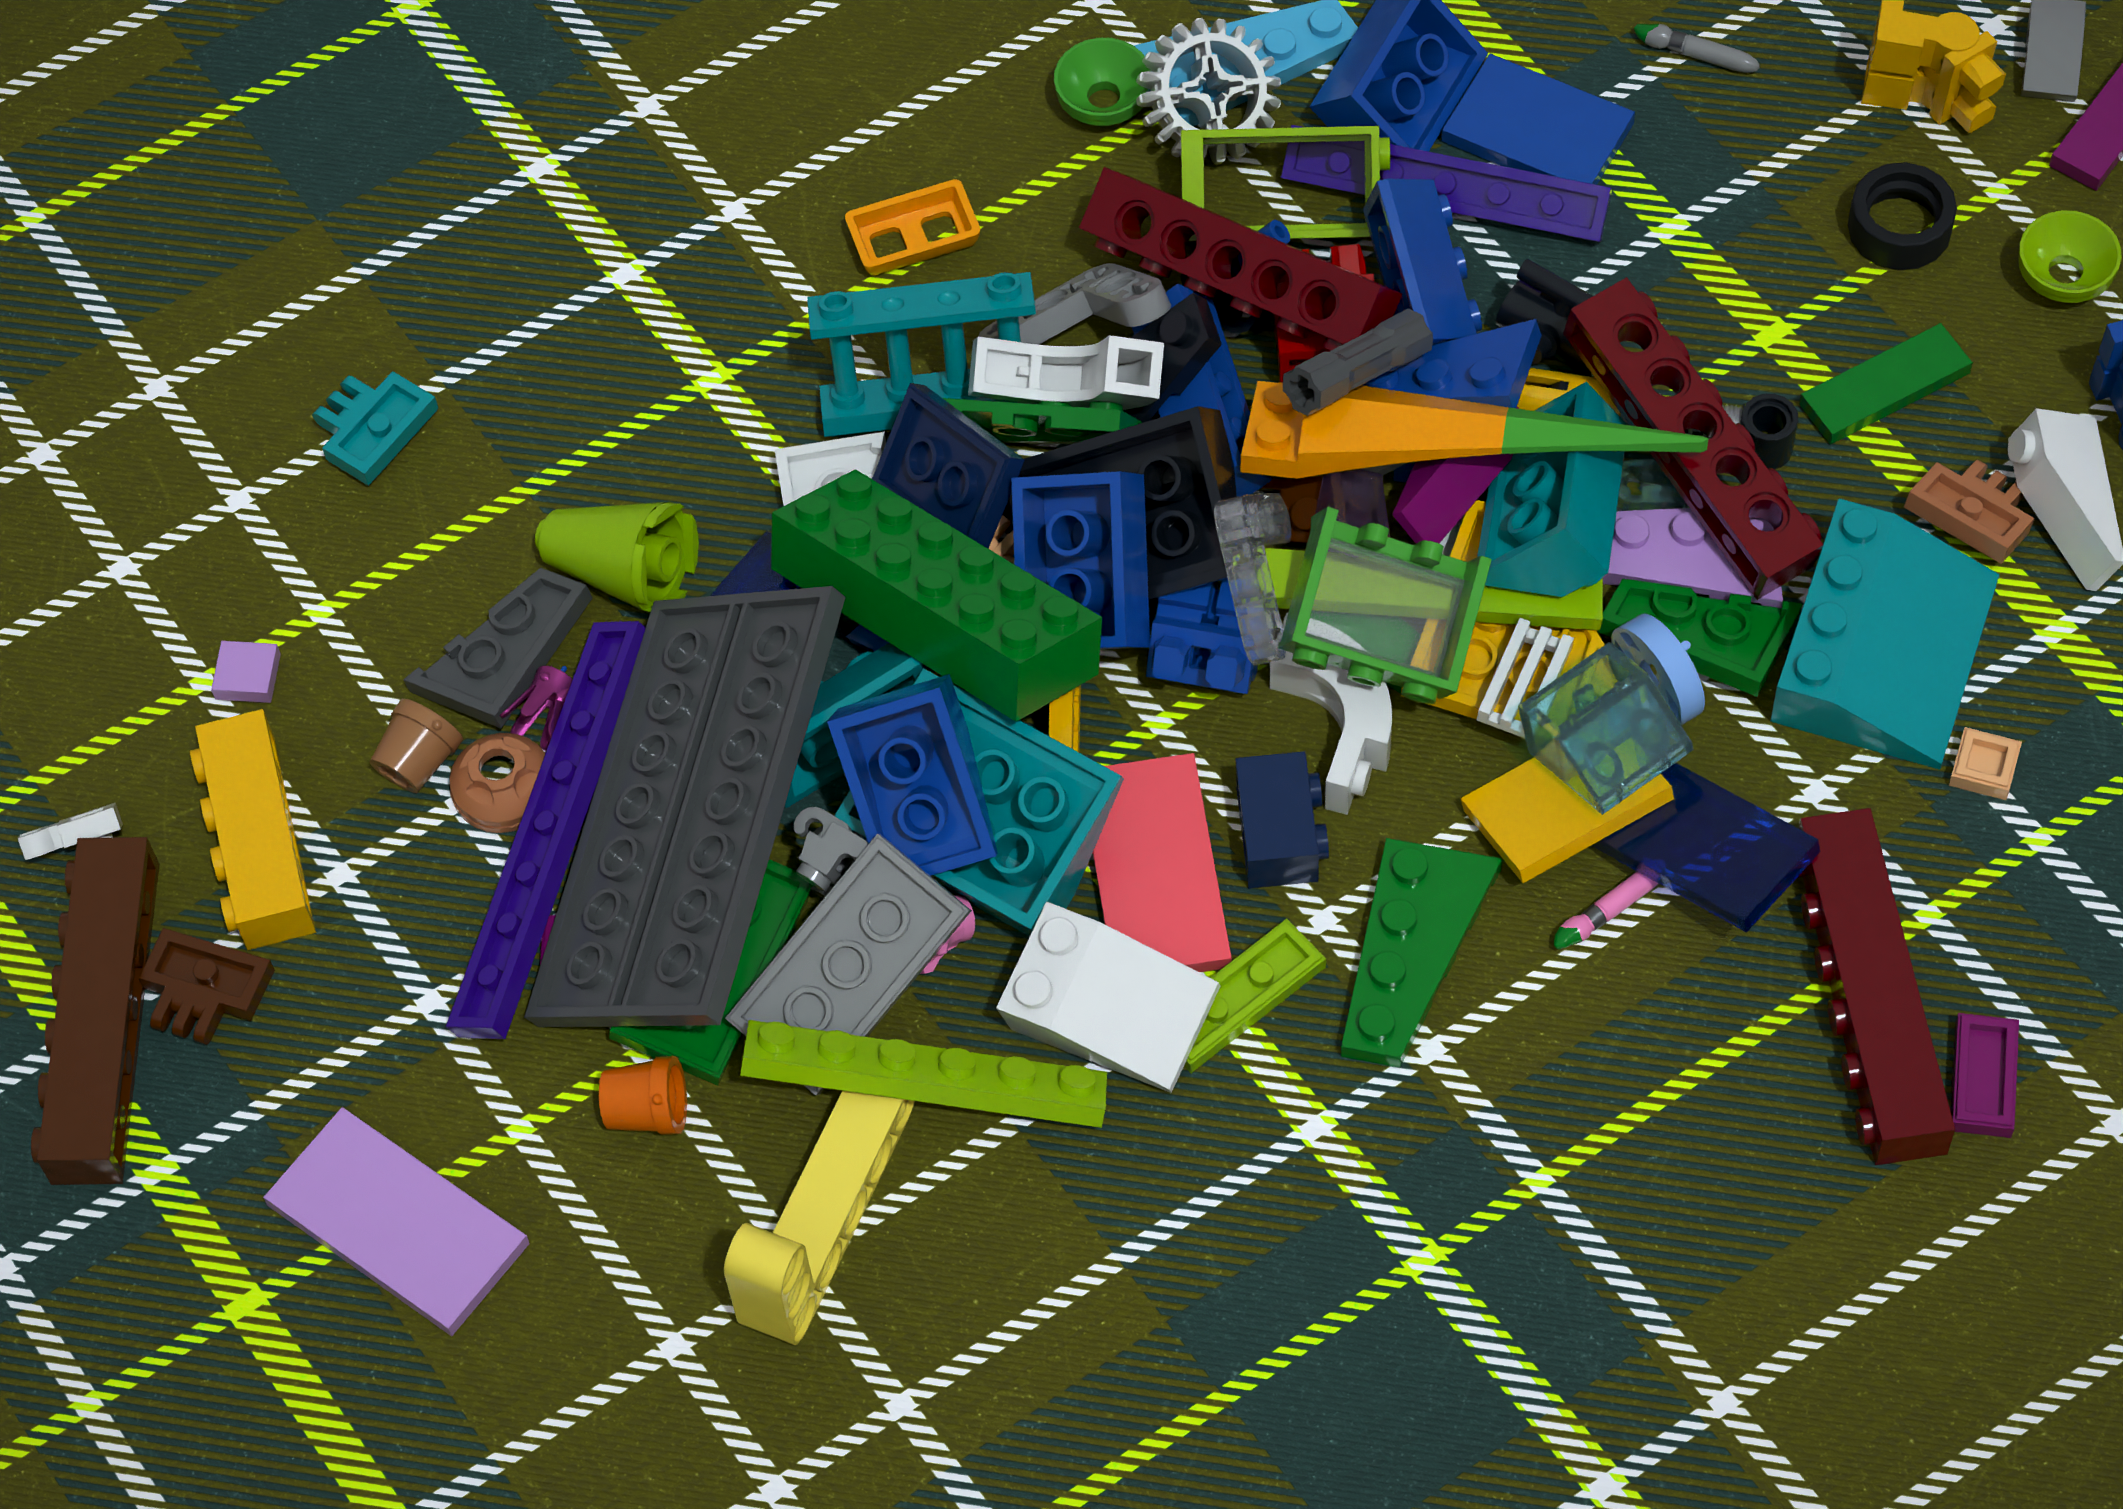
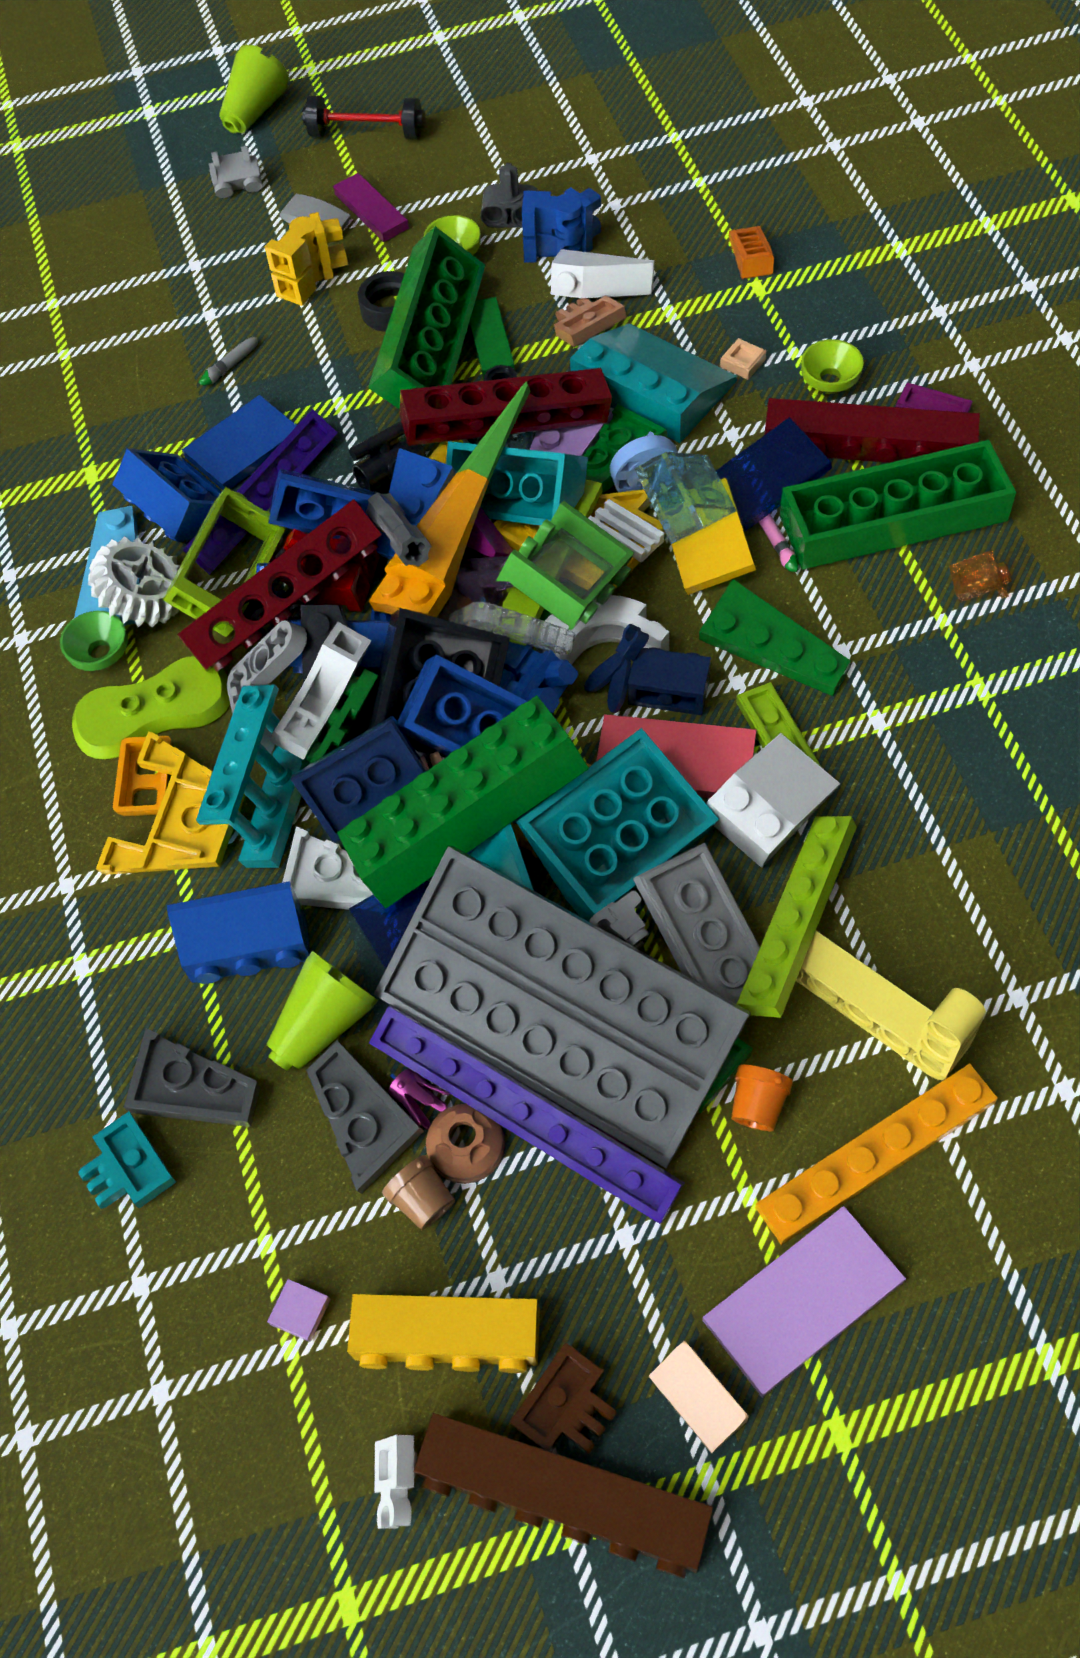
camera: 70 degrees left, 0 degrees up
(249, 1131) = (698, 1397): none -> light nougat slope
(490, 448) = (186, 1086): none -> dark grey wing
(617, 1267) = (875, 1153): none -> light orange plate
(698, 426) = (240, 932): none -> blue slope
(788, 254) = (176, 836): none -> yellow wing
(916, 774) = (595, 842): blue slope -> none
(1025, 186) = (173, 699): none -> lime plate
(1264, 736) = (618, 667): none -> dark blue piece
(1627, 1211) = (979, 576): none -> clear orange bracket
(1719, 1049) = (896, 504): none -> green brick
(1840, 280) = (428, 318): none -> green brick
(2002, 869) = (833, 358): none -> lime piece

